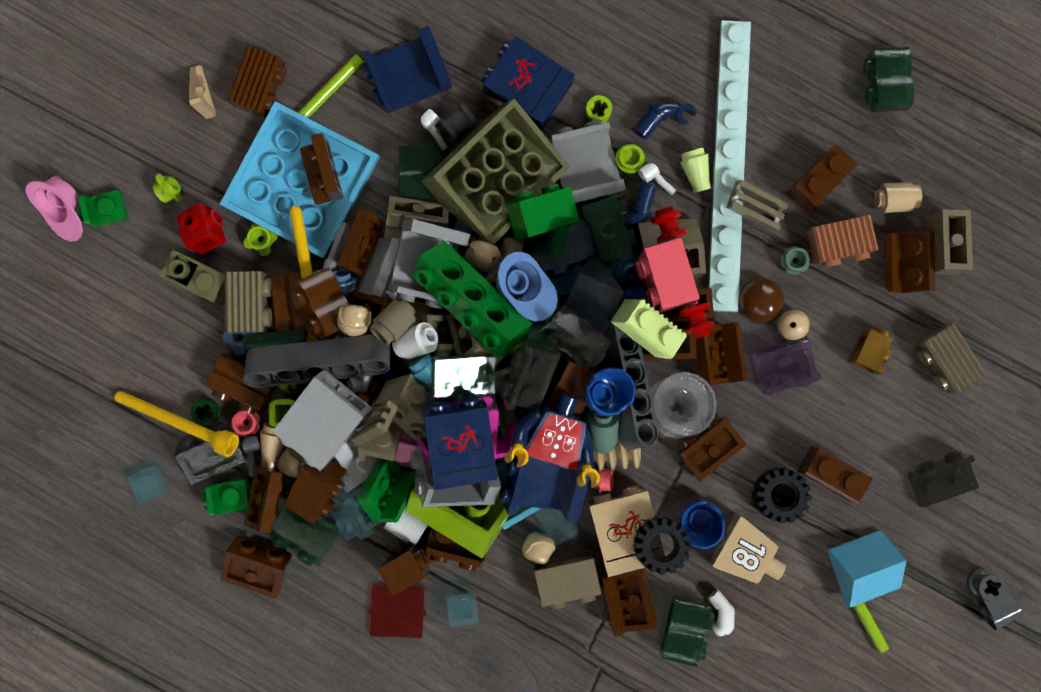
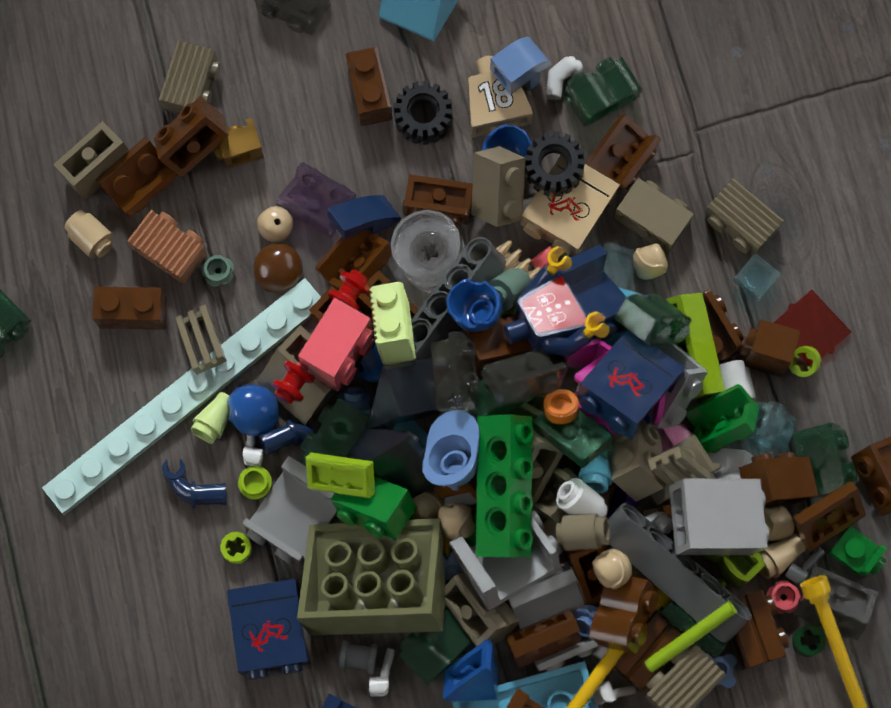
camera: 135 degrees left, 10 degrees down
(268, 331) = (690, 636): none -> lime bar
(288, 252) = (607, 694): none -> white hand
(377, 178) = (473, 676): none -> blue slope
(377, 593) = (811, 353): none -> lime bush
(486, 384) = (561, 406): none -> orange tile
(488, 502) = (653, 319): none -> clear green brick
(510, 639) = (743, 218): none -> dark tan brick
(579, 204) = (340, 475): none -> lime plate
(681, 194) = (253, 409): none -> blue hair
(682, 493) = (498, 186): none -> dark tan brick
(746, 388) = (361, 214): none -> dark blue slope
(755, 589) = (519, 65): none -> medium blue brick
(907, 320) = (190, 136): none -> reddish brown brick

